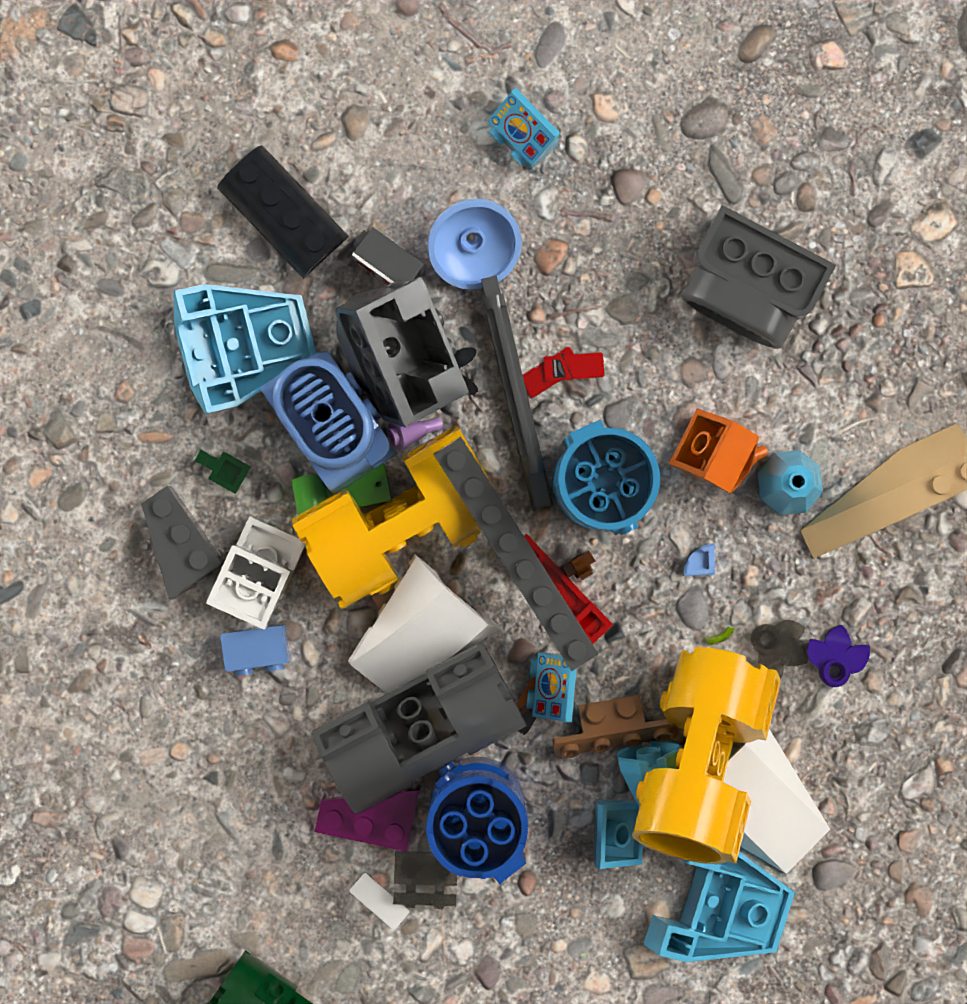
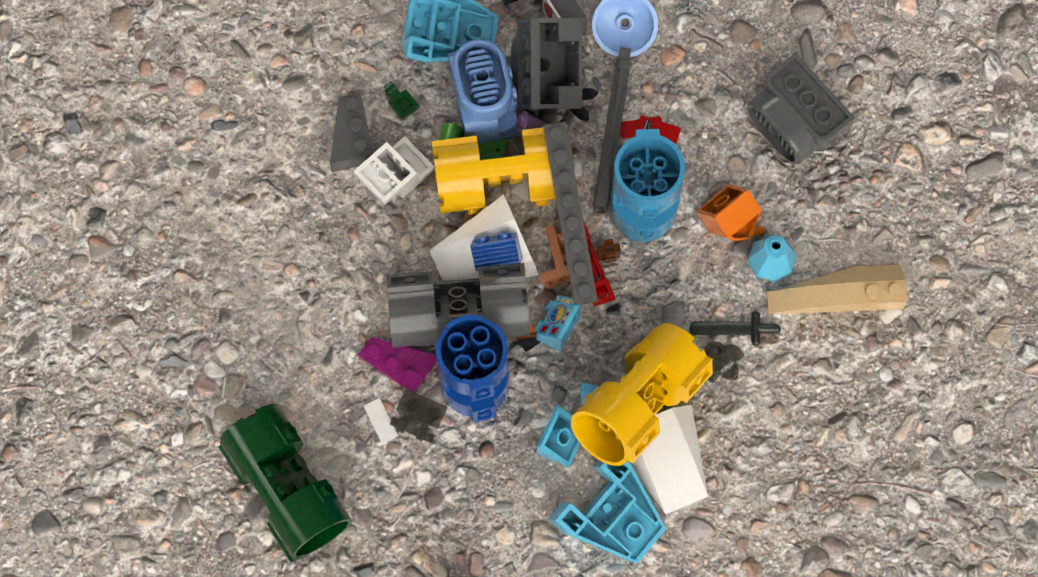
camera: 30 degrees right, 15 degrees down
(254, 649) = (371, 221): medium blue brick -> none
(439, 639) = (496, 250): none -> blue brick
(517, 600) = (560, 274): none -> nougat bracket
(613, 725) = (582, 366): medium nougat bracket -> none
(700, 561) = (691, 285): light blue tile -> none
(780, 595) = (751, 328): none -> pearl dark grey sword
(837, 651) = (759, 380): dark purple plate -> none

